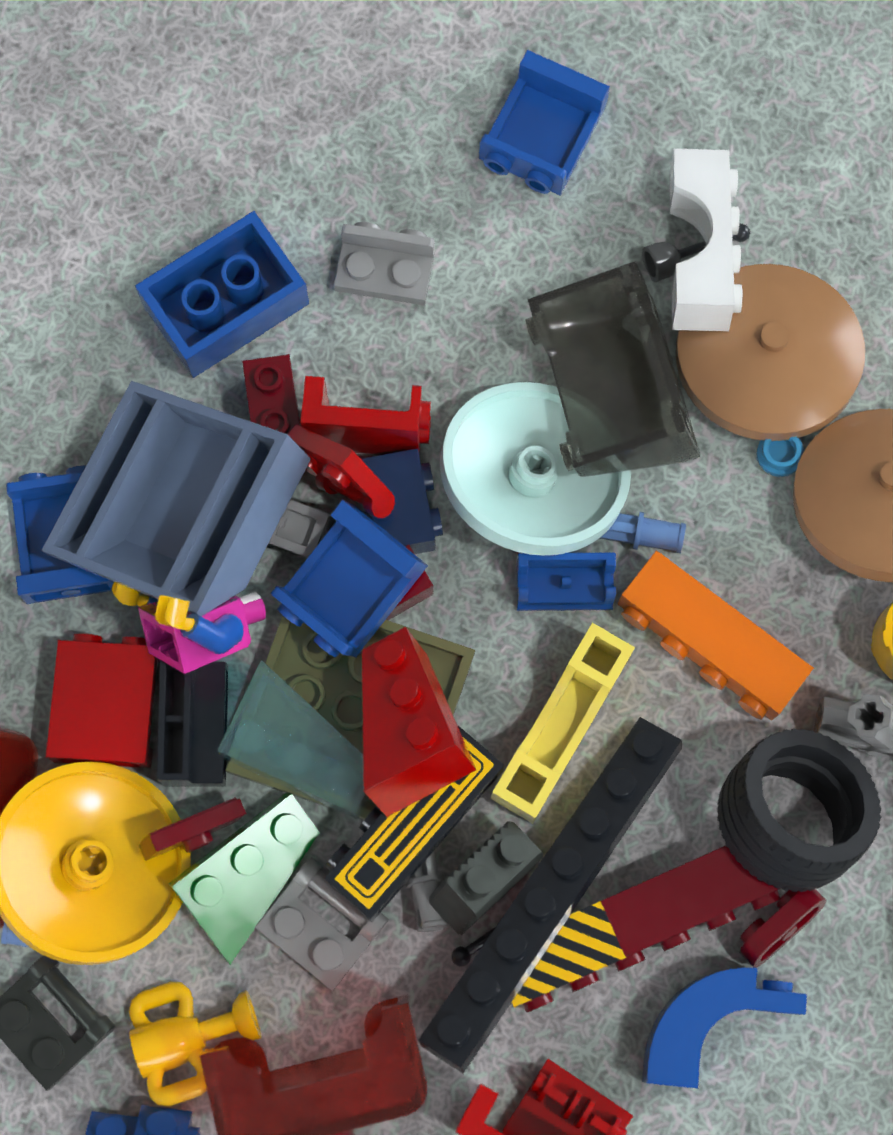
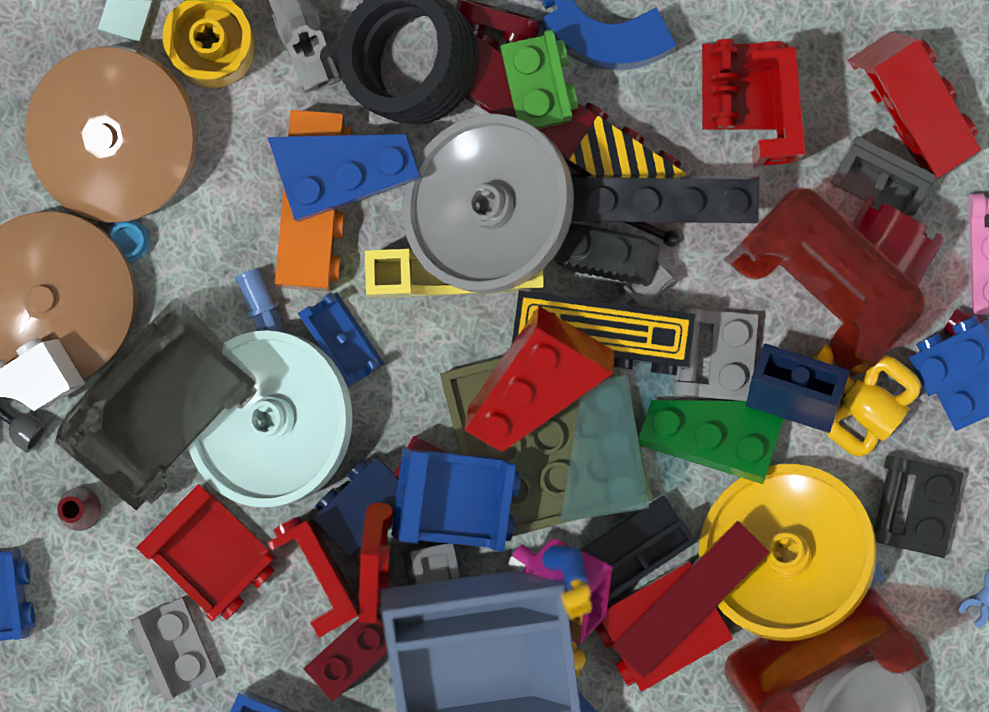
camera: 125 degrees left, 10 degrees up
(109, 740) = (690, 599): none -> dark red tile
(192, 831) = (713, 491): dark red plate -> none
(235, 976) = (797, 388): none -> dark blue brick
(449, 346) = (209, 553): none -> red panel
(563, 259) = (88, 509): none -> dark red cone
(605, 788) = (488, 204): none -> light grey dish
(695, 917) = (538, 80): none -> bright green bracket
(726, 674) = (341, 170): none -> blue wing

